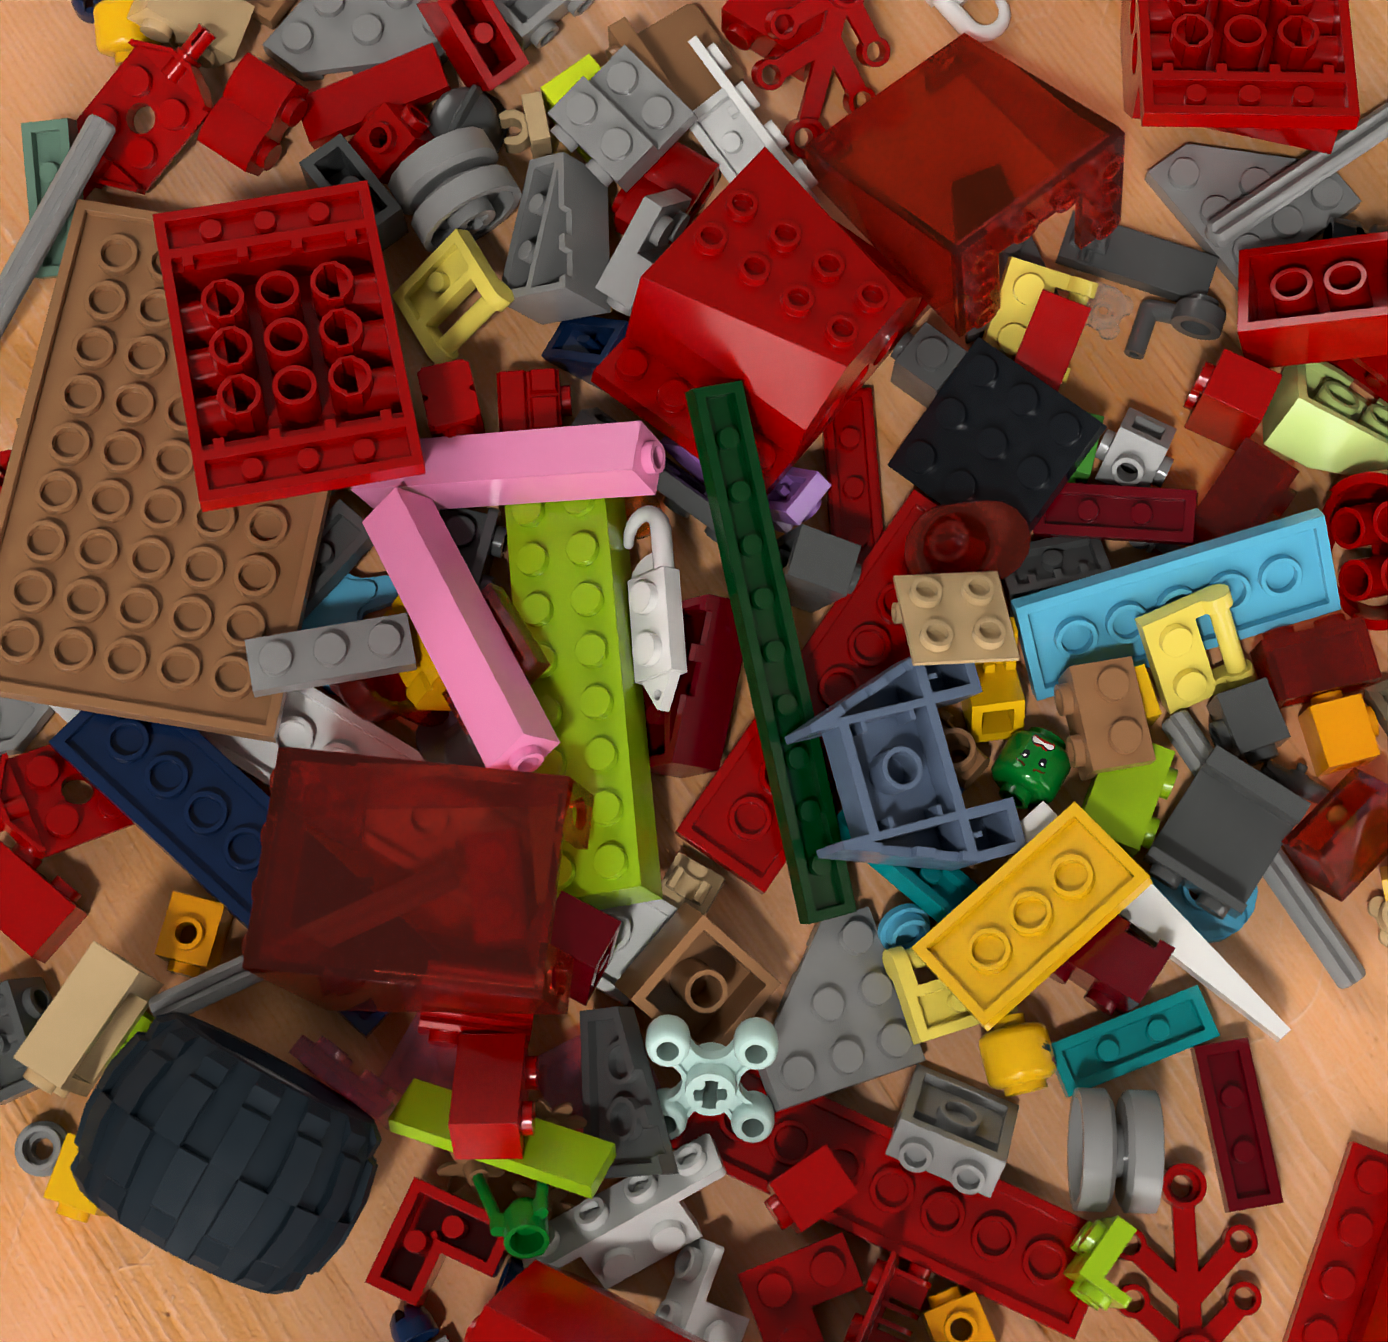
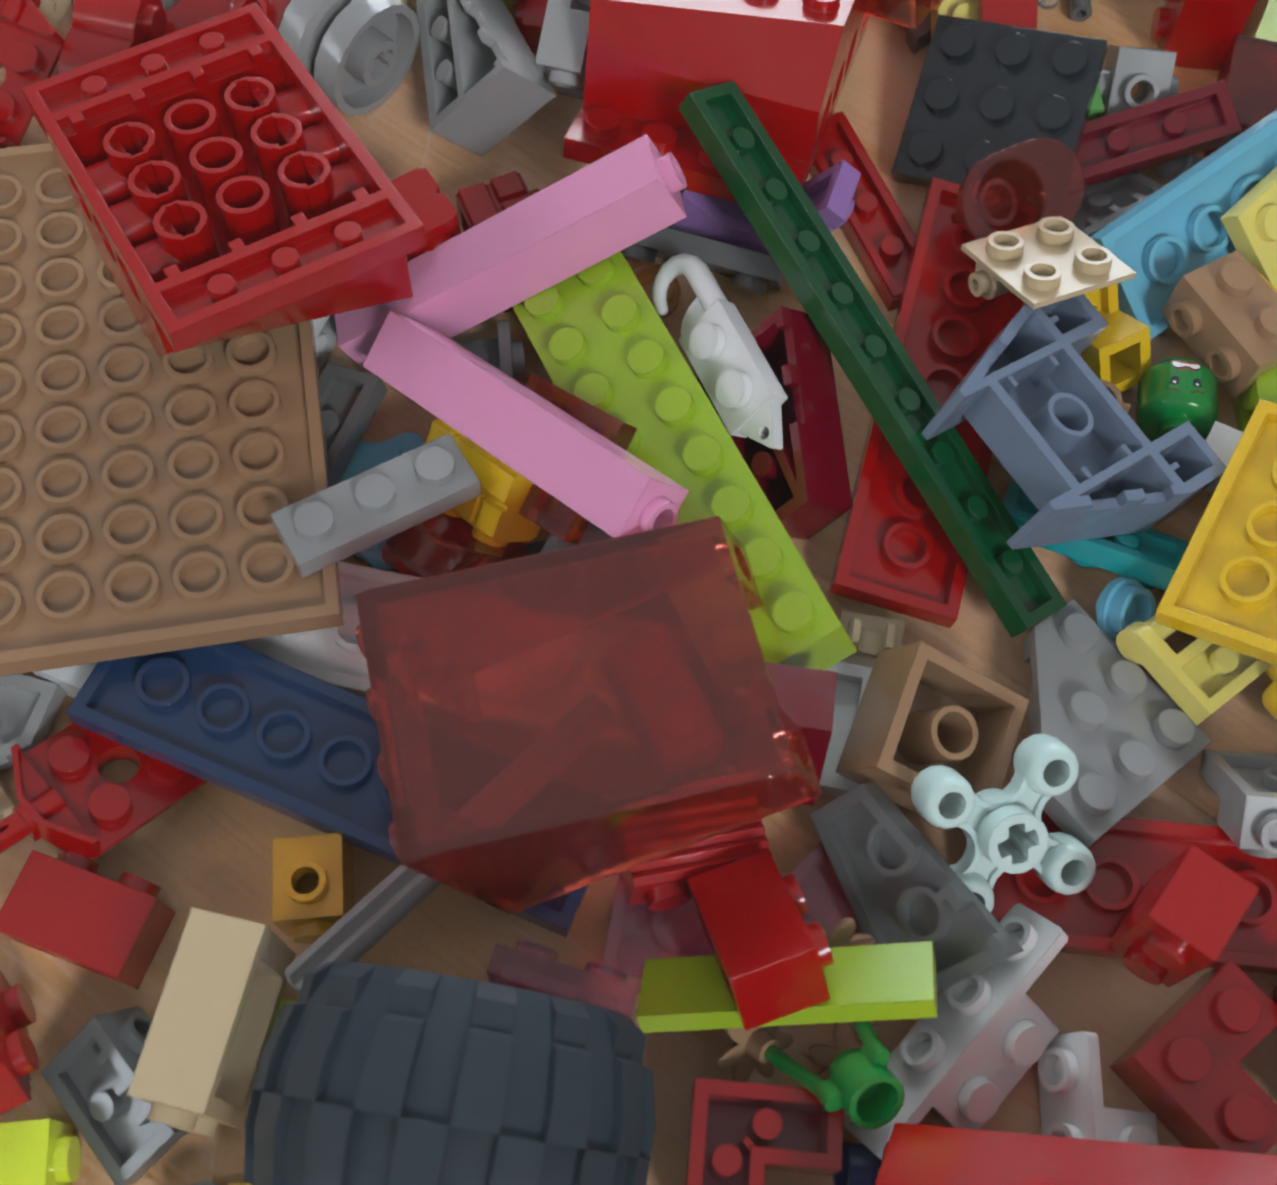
camera: 20 degrees left, 10 degrees down
(442, 286) = (377, 113): light yellow plate -> none
(583, 344) = (539, 146): dark blue slope -> none
(817, 567) = (884, 254): dark grey brick -> none
(924, 363) = (890, 69): dark grey brick -> none

